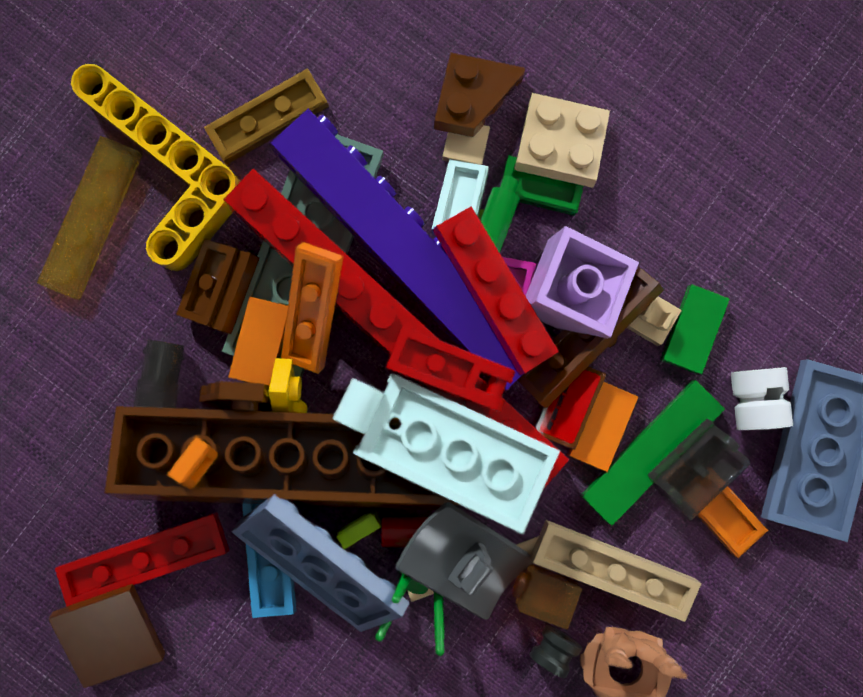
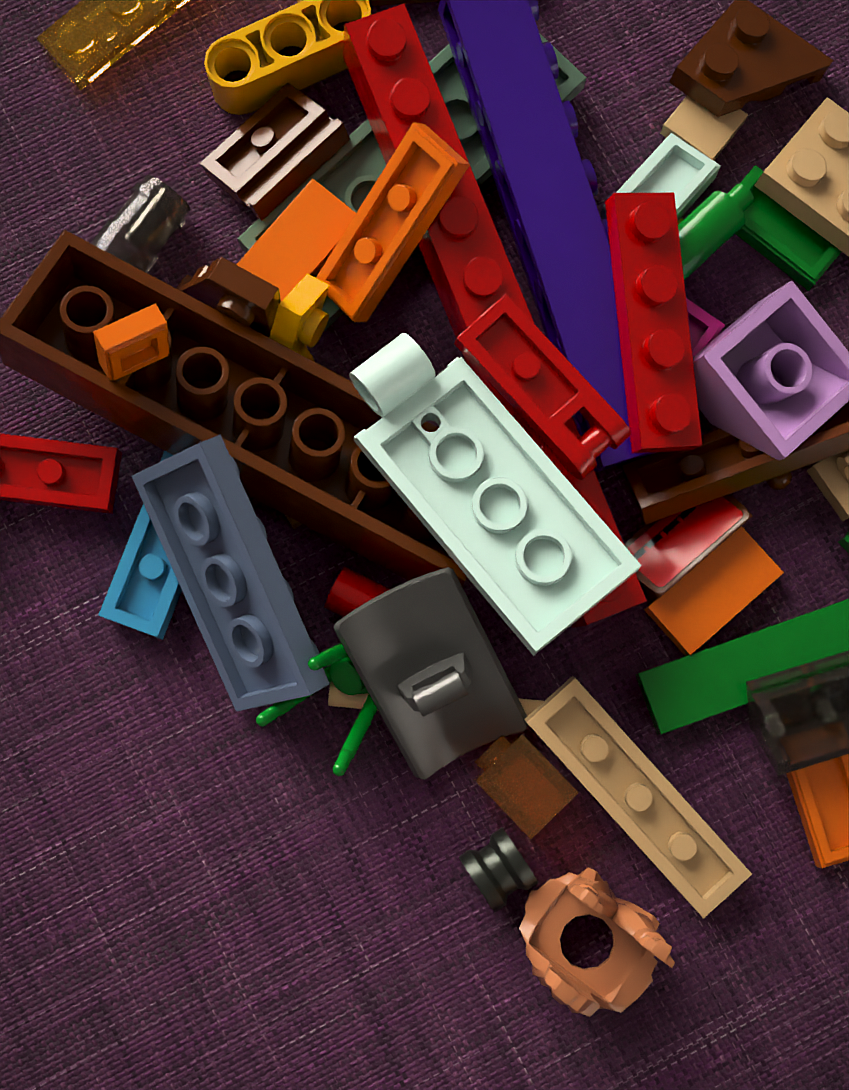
camera: 25 degrees right, 5 degrees down
(359, 528) = (308, 563): lime tile -> none

